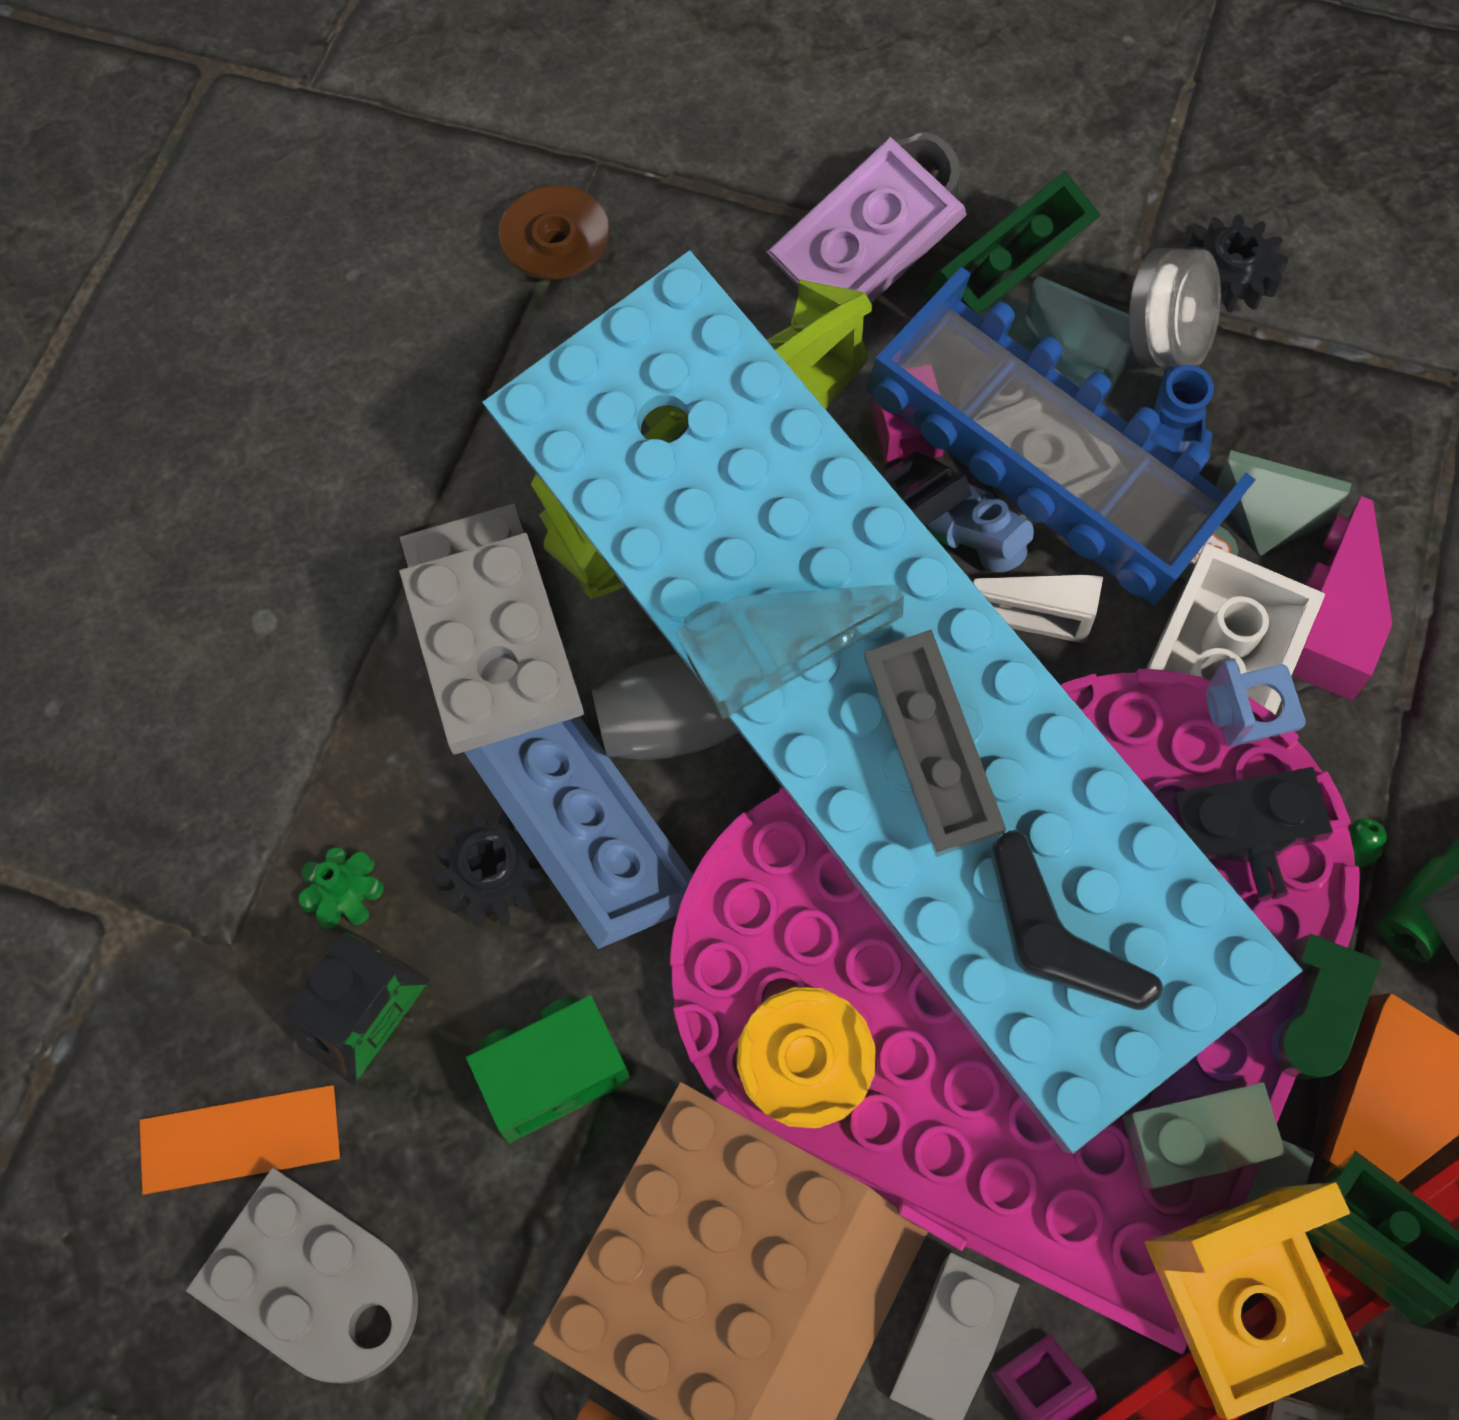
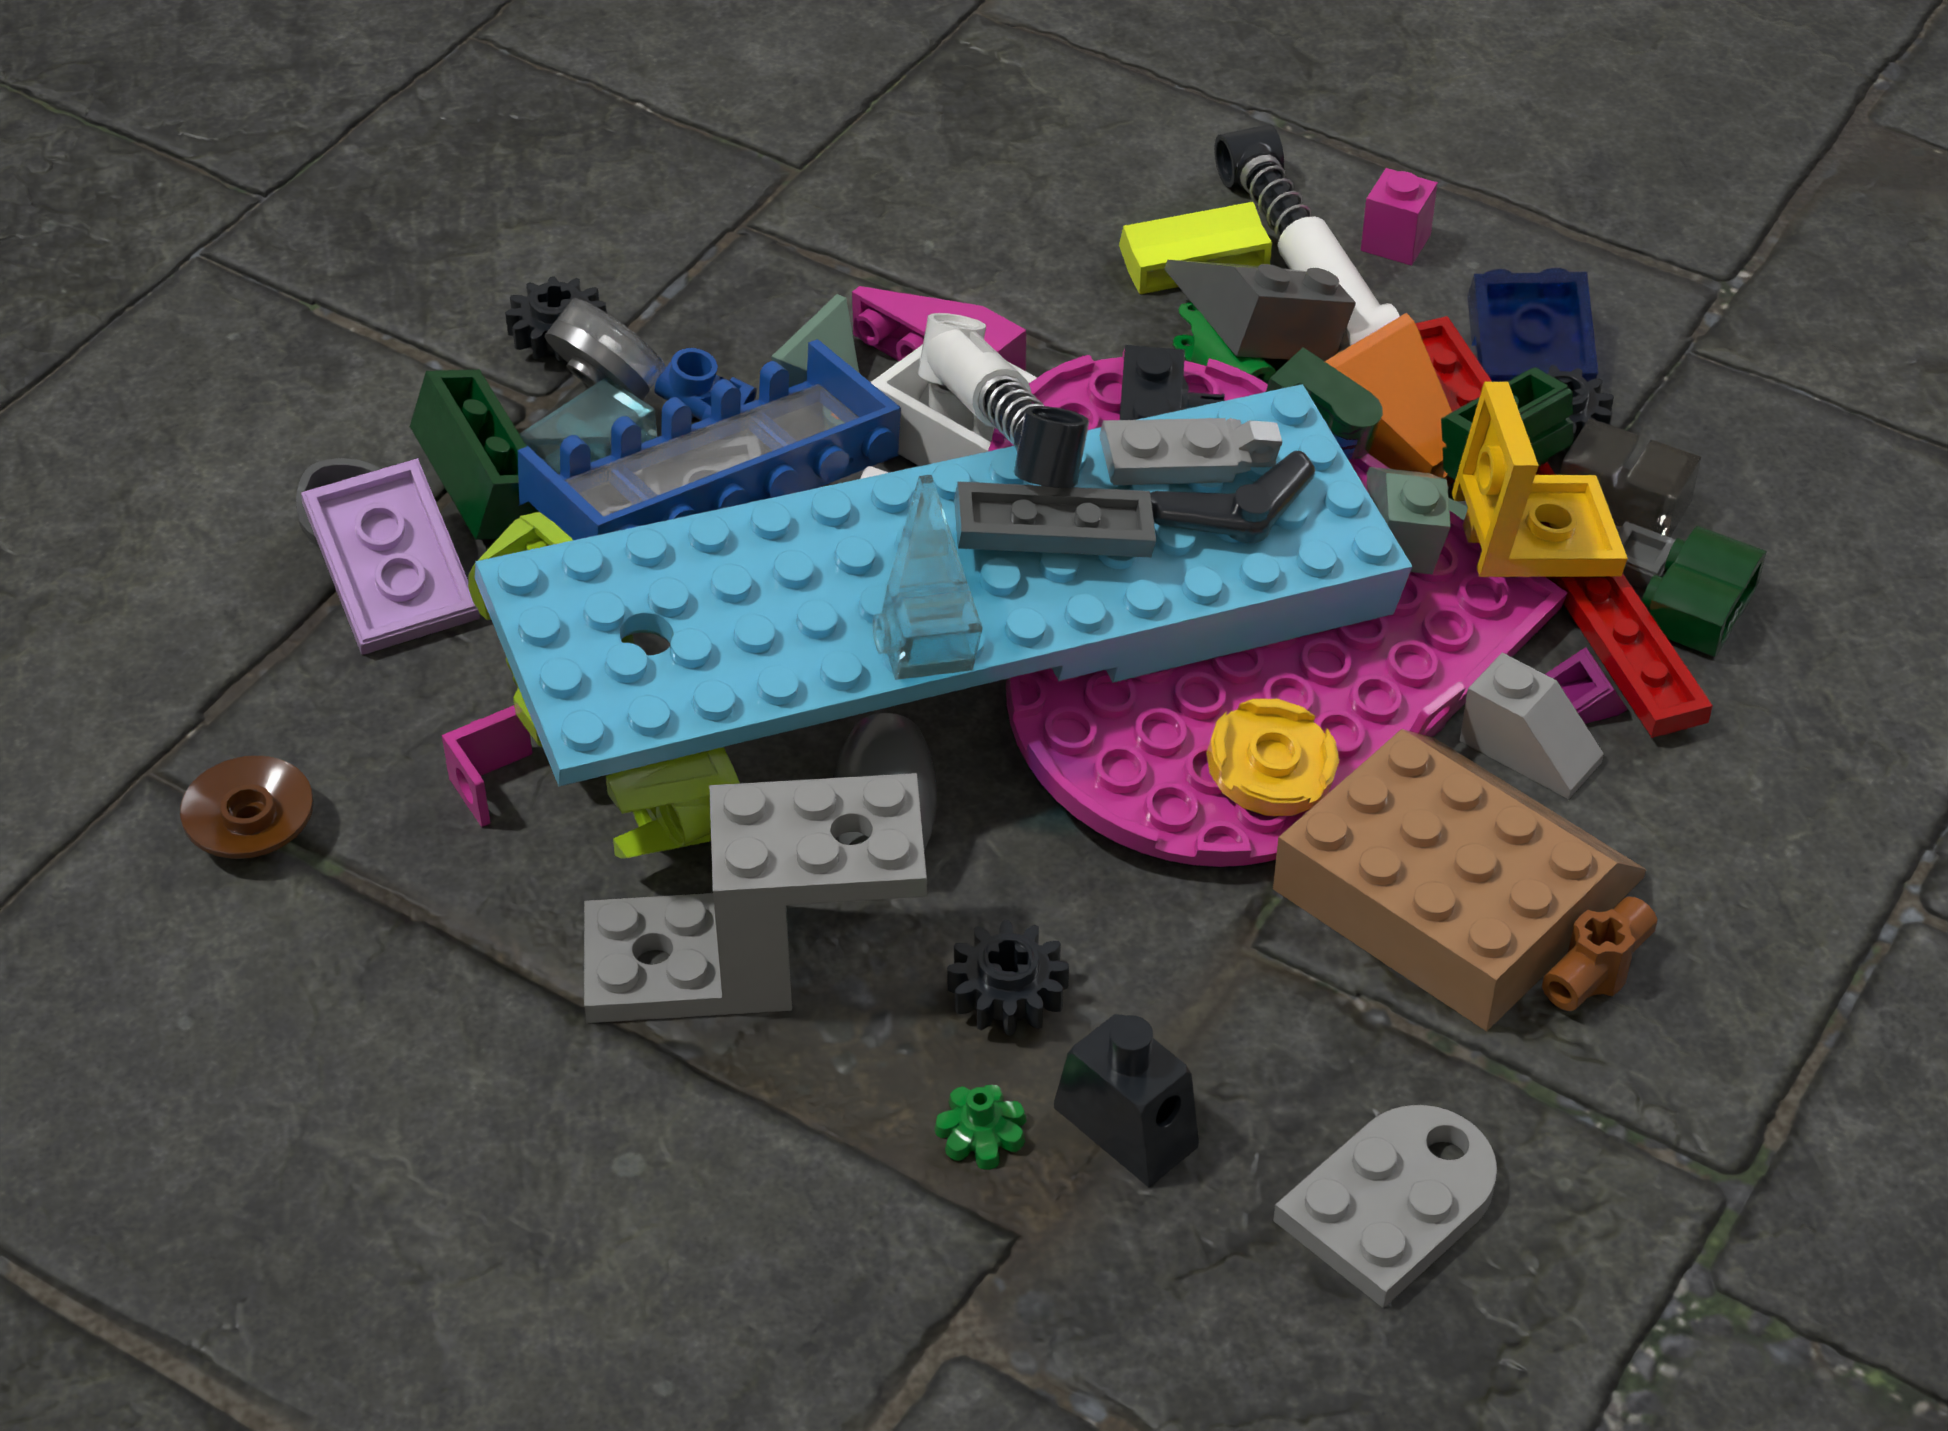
camera: 80 degrees left, 20 degrees down
(238, 1139) = (1232, 1253): orange sticker -> none
(547, 1067) = (1228, 964): green brick -> none
(585, 829) = (991, 884): medium blue plate -> none
(1108, 856) = (1186, 449): none -> light grey hinge
(1131, 650) = (1045, 437): none -> piece
(1231, 707) = (1058, 363): medium blue bracket -> none

